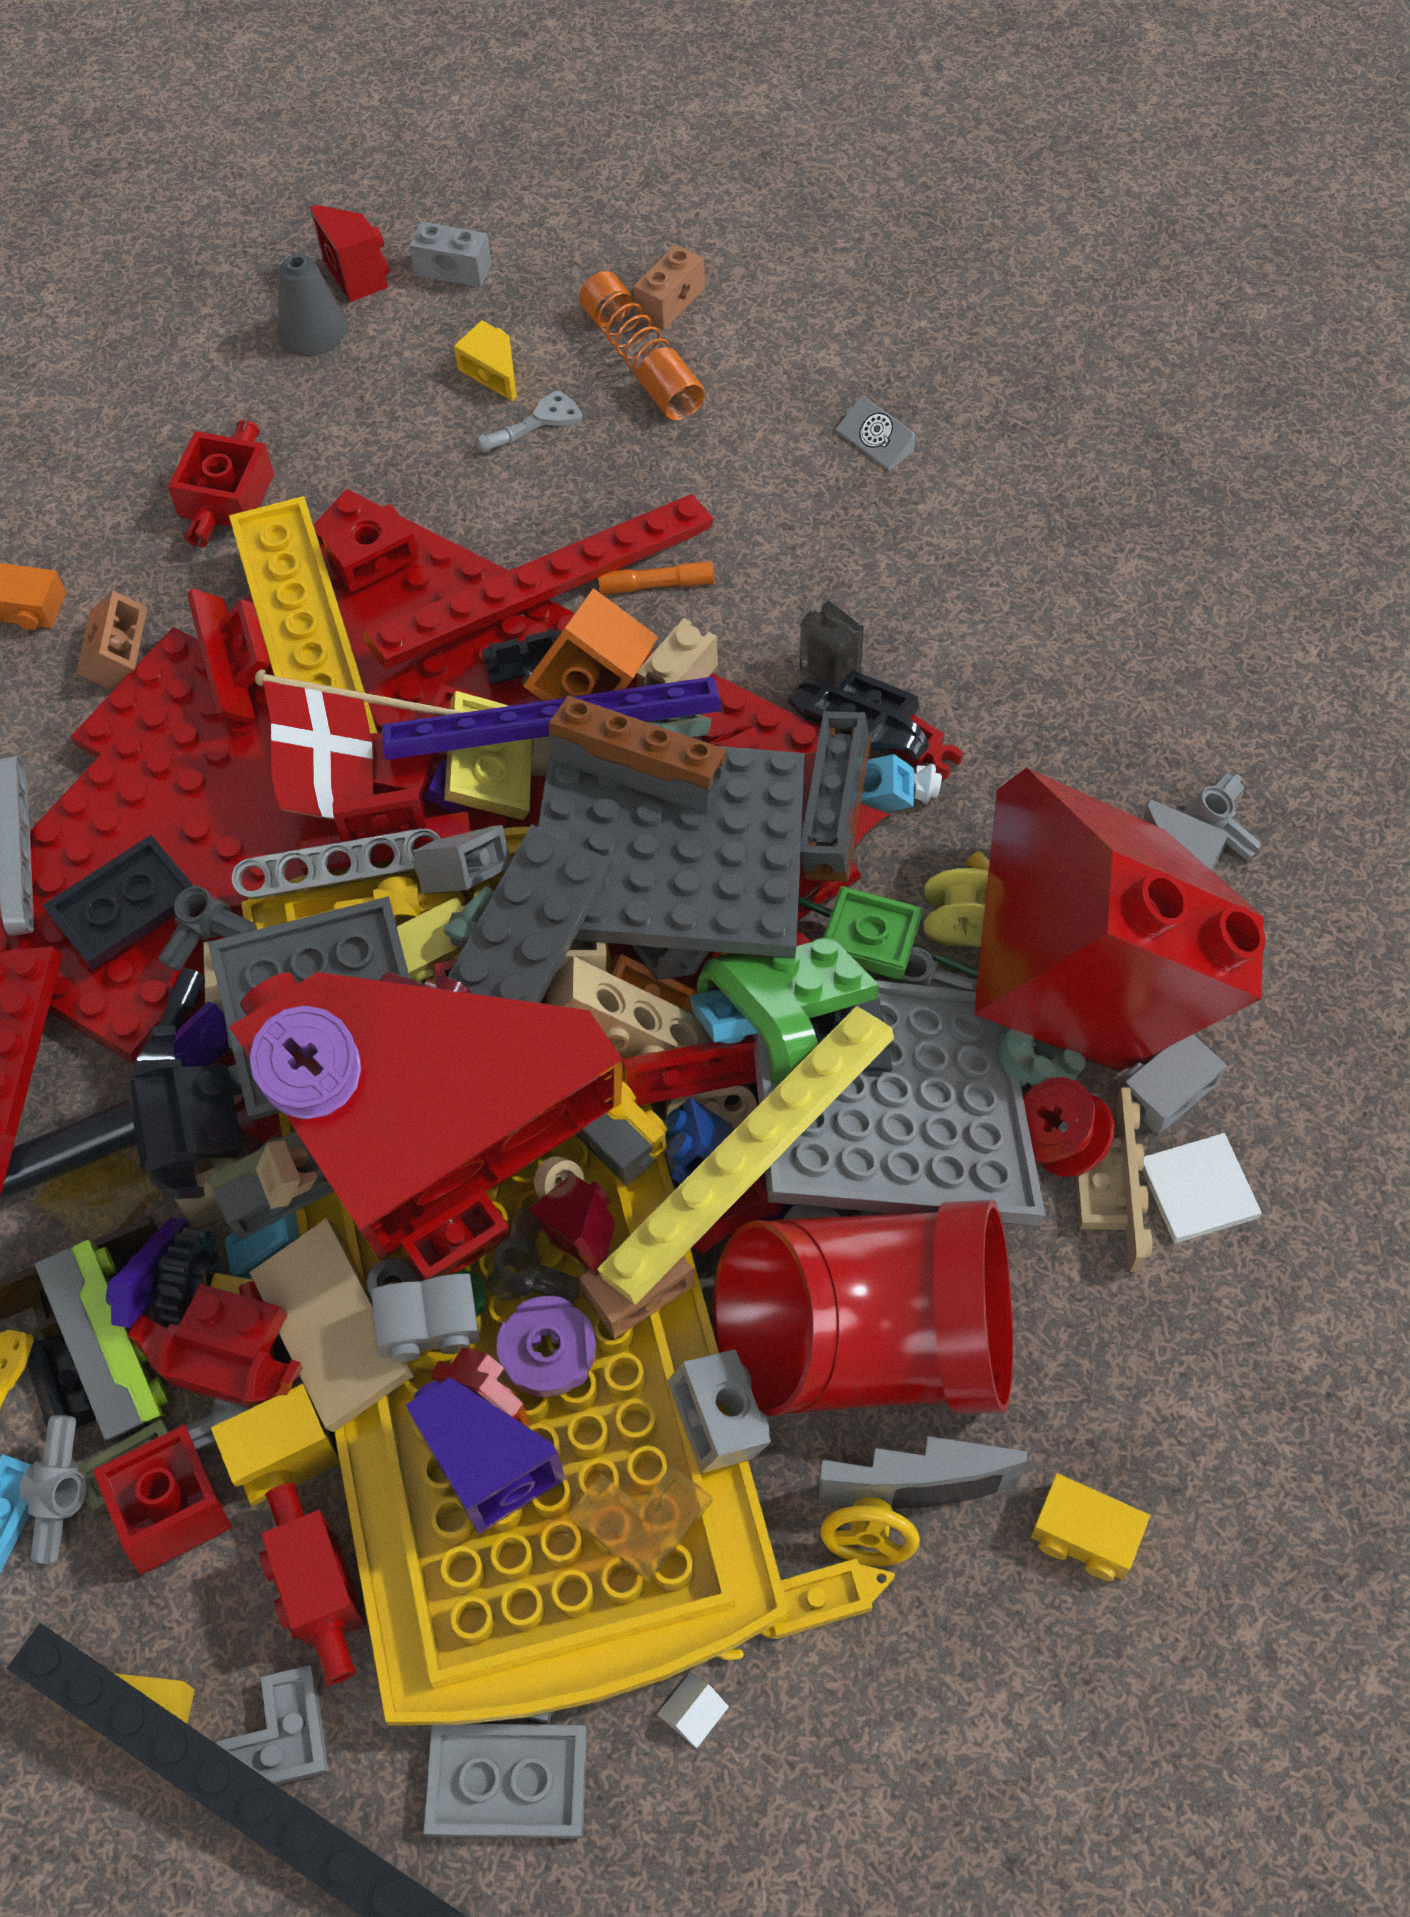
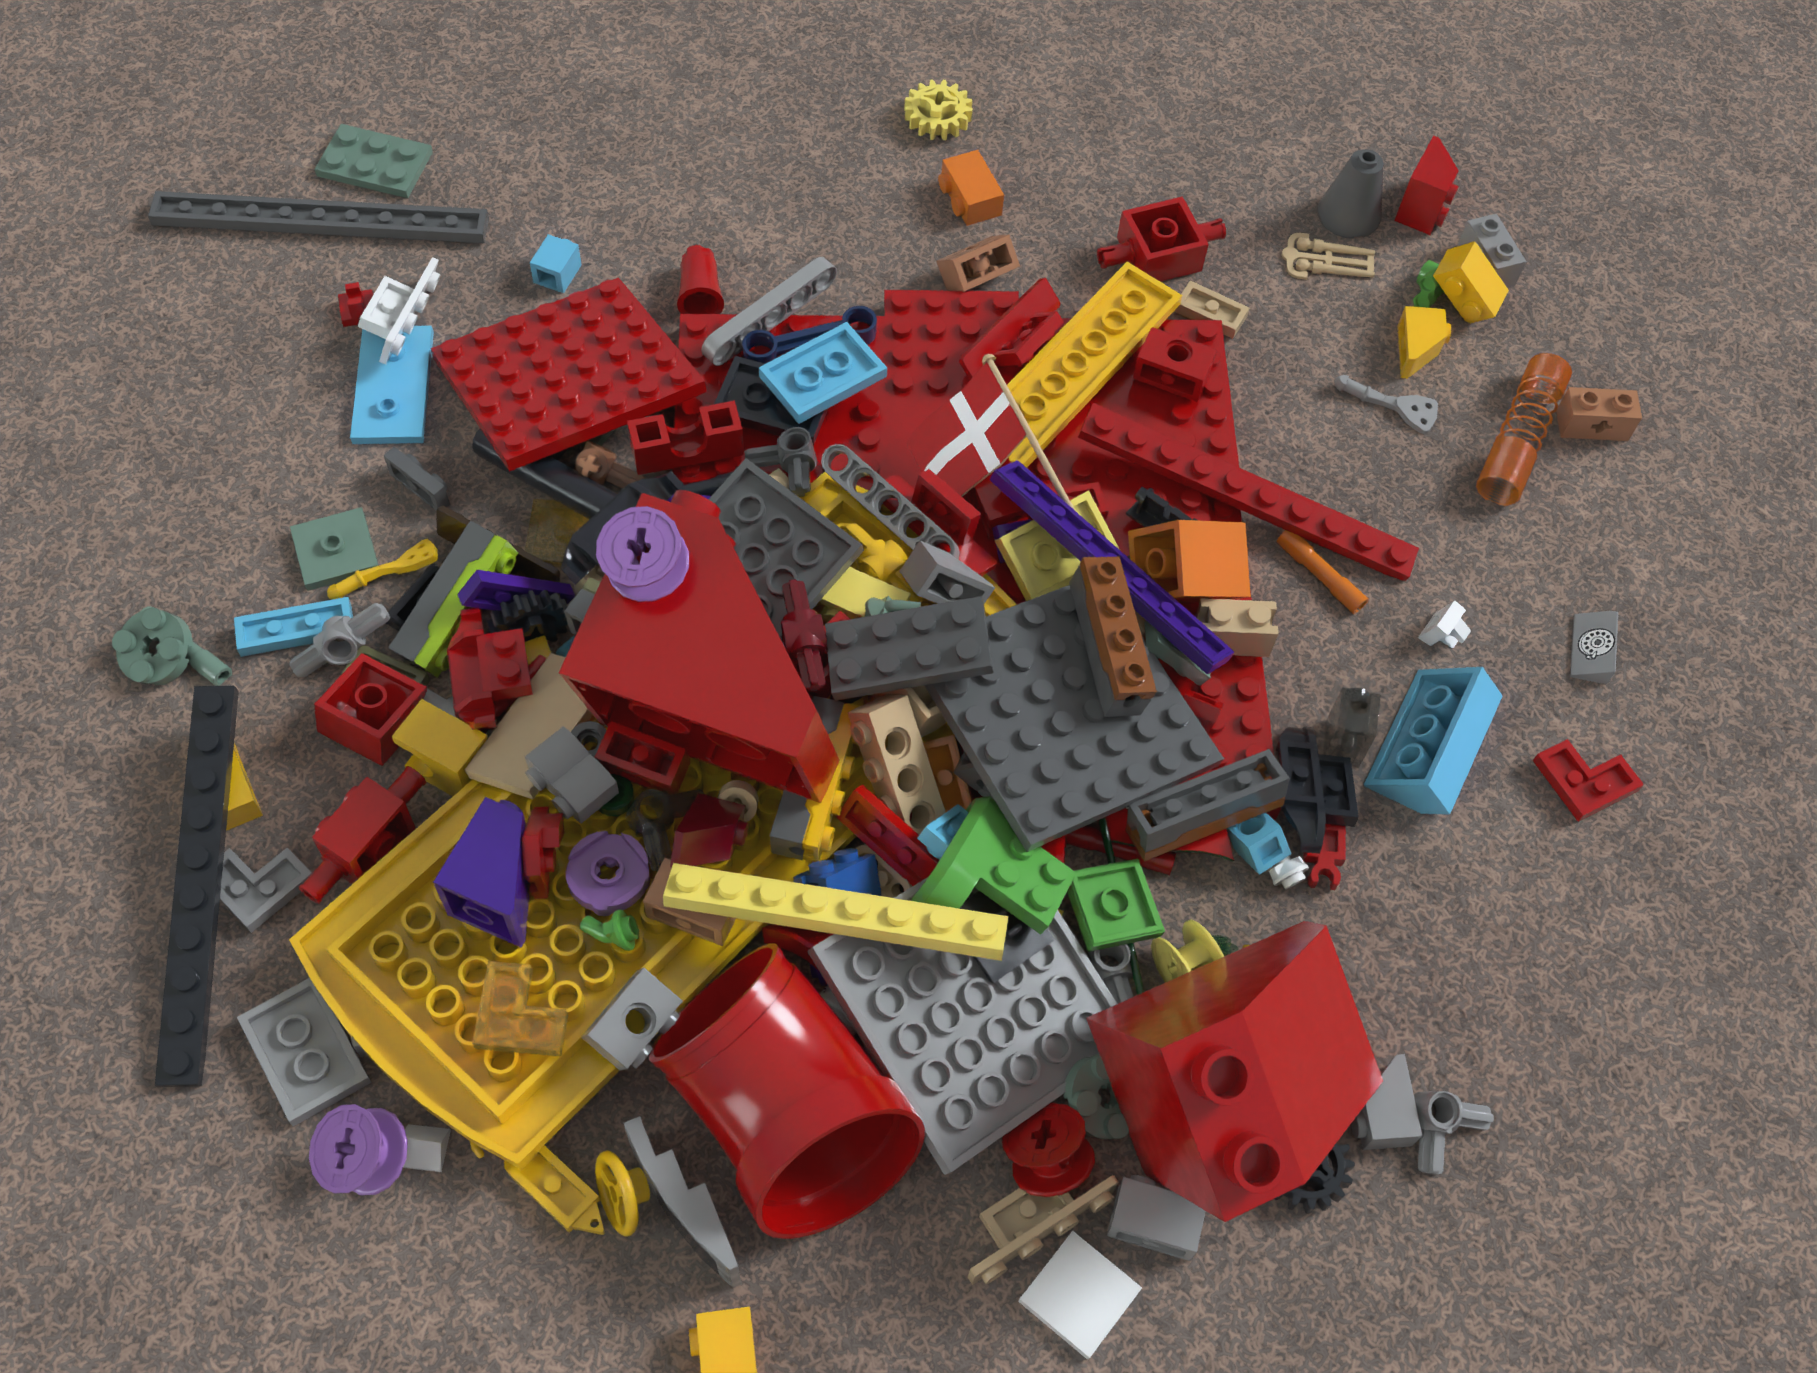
camera: 50 degrees right, 0 degrees up
(55, 1110) = (601, 466): none -> nougat axle
(76, 826) = (786, 342): none -> dark blue piece
(120, 977) = (711, 438): none -> red arch
(135, 835) = (822, 372): none -> medium azure plate
(325, 487) = (1205, 304): none -> tan plate
(346, 380) = (1291, 254): none -> tan piece
(442, 310) = (1429, 286): none -> bright green plate
(472, 285) = (1471, 282): none -> yellow brick
(620, 1369) = (619, 930): none -> bright green plate
(665, 1804) = (358, 1150): none -> medium lavender piece
(780, 522) = (1446, 626): none -> white tile
(881, 592) = (1435, 738): none -> medium azure slope
(995, 527) = (1582, 788): none -> red plate

